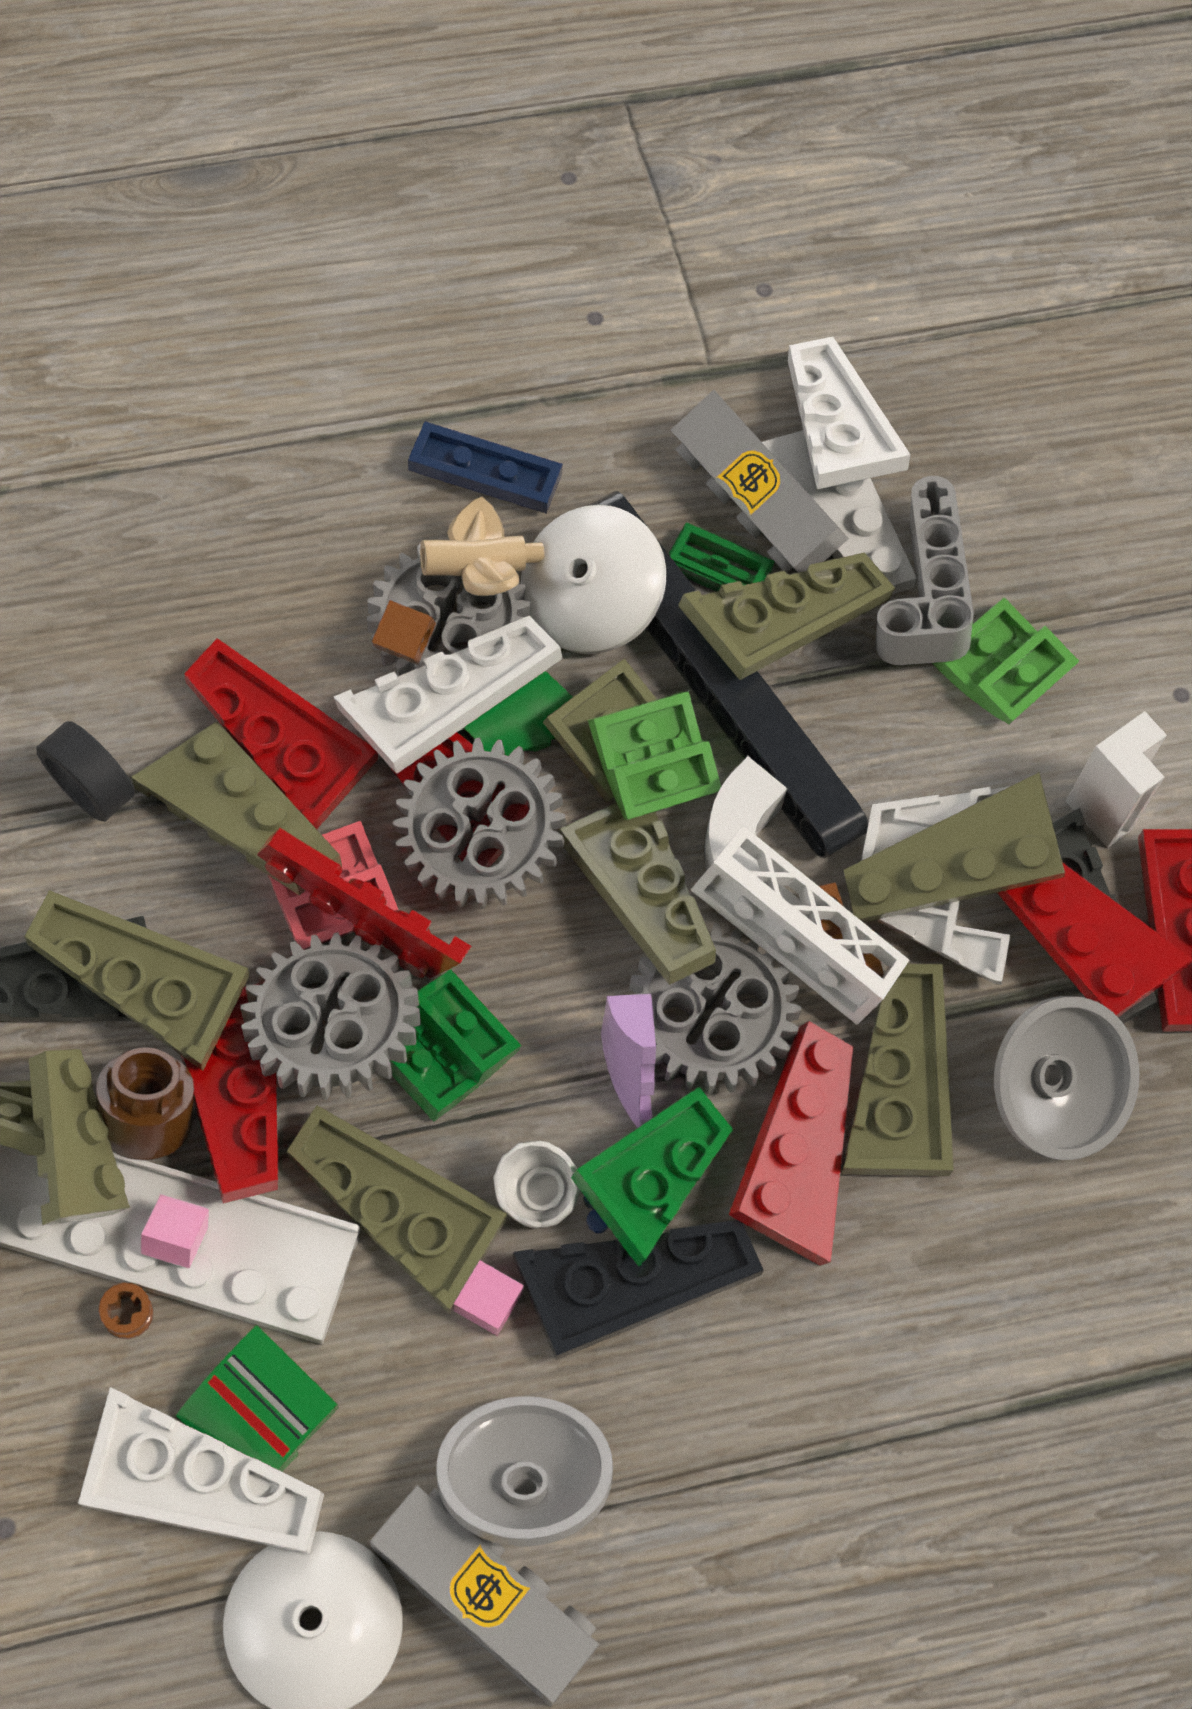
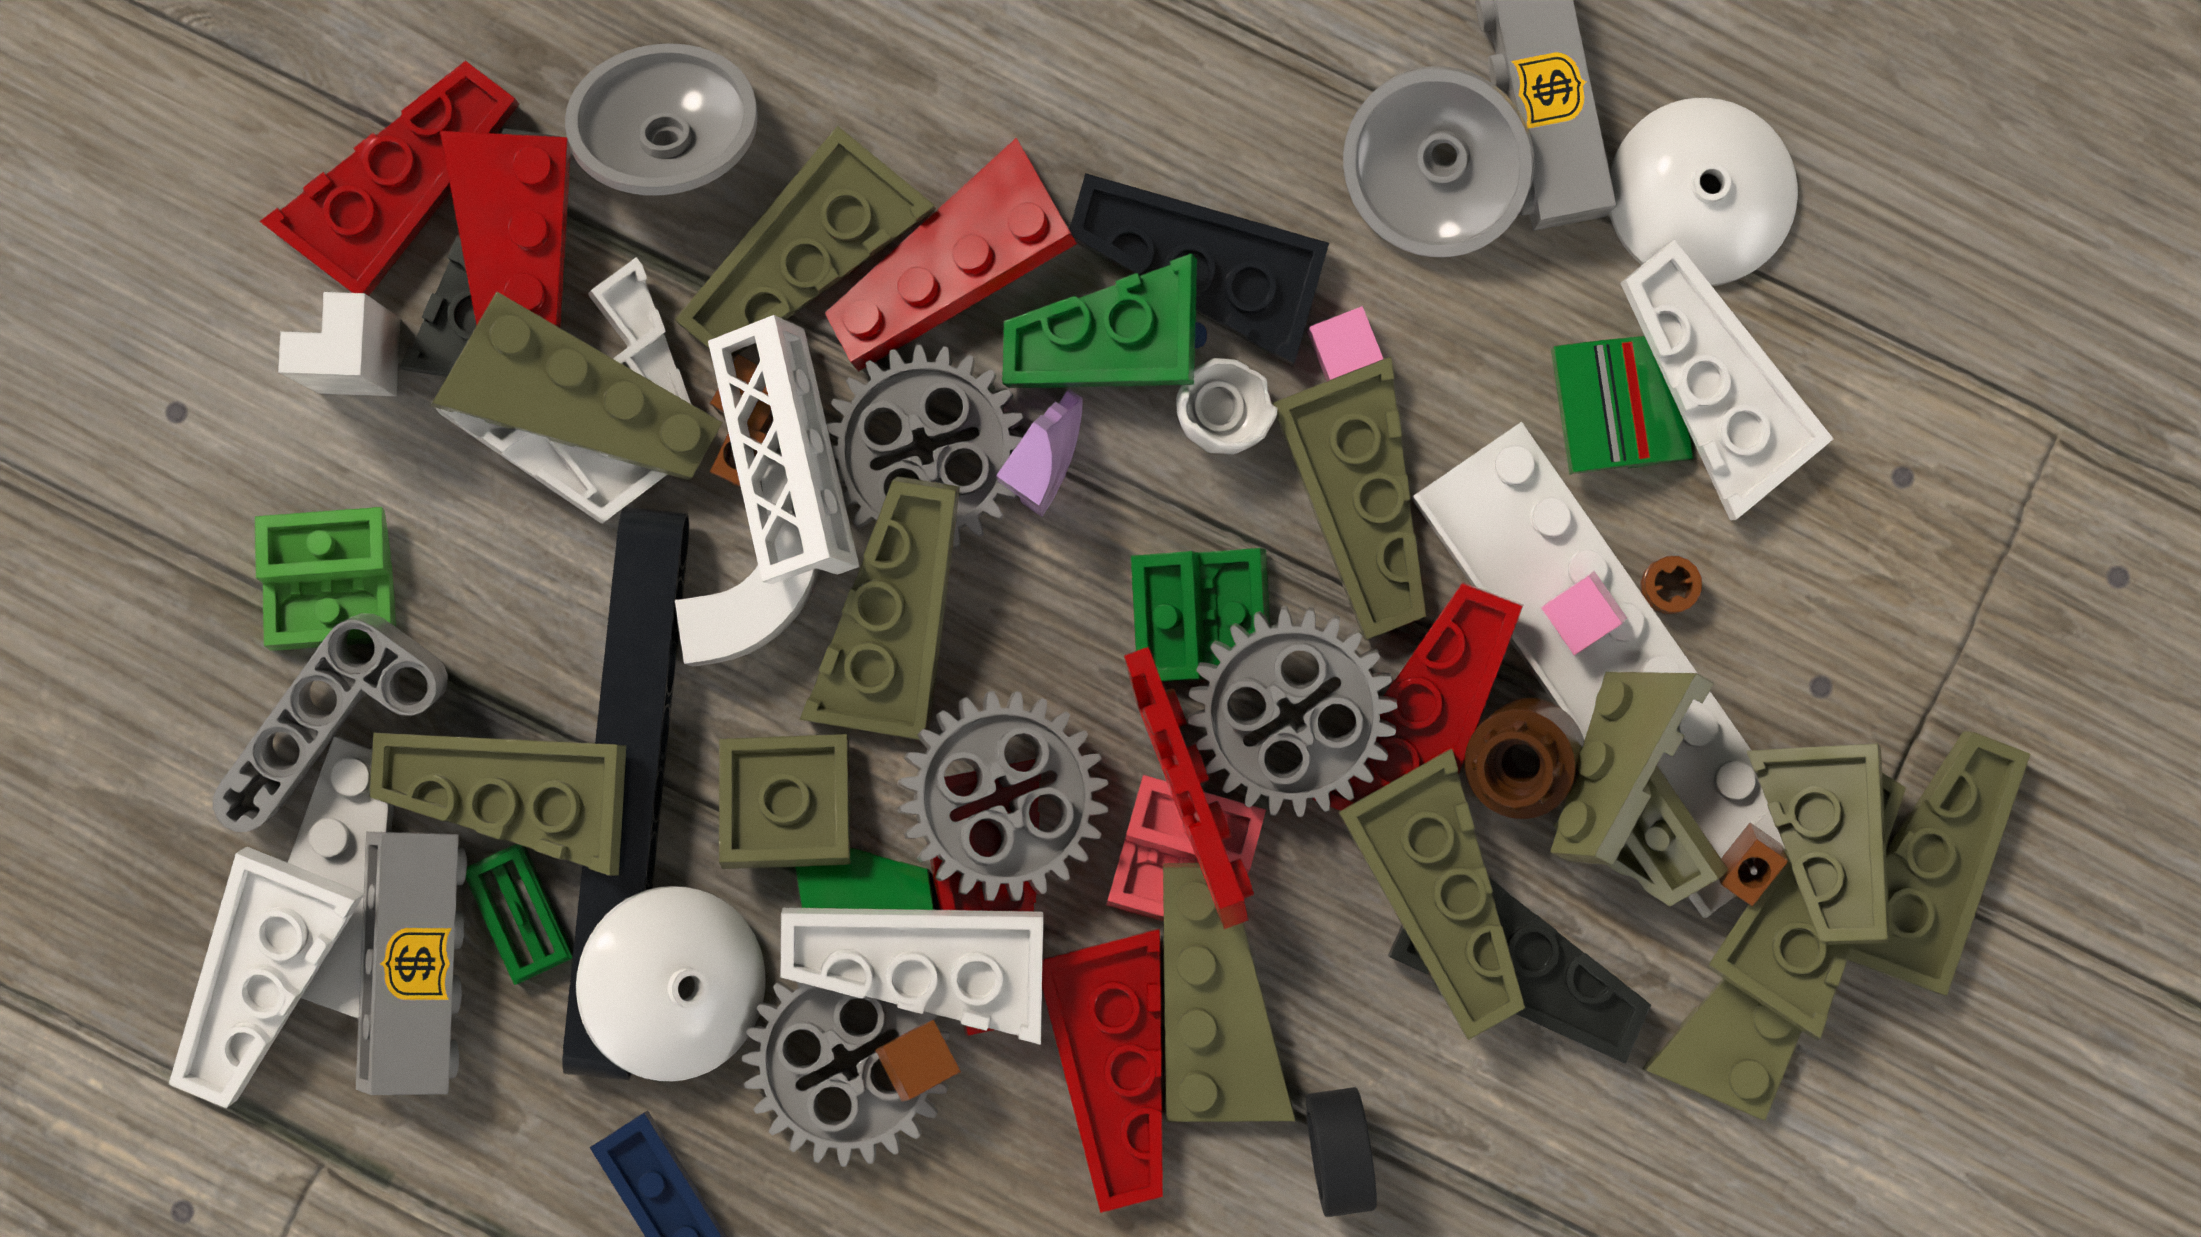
camera: 130 degrees left, 20 degrees up
(479, 551) = (769, 1091): tan plant -> none
(654, 755) = (771, 740): bright green slope -> none

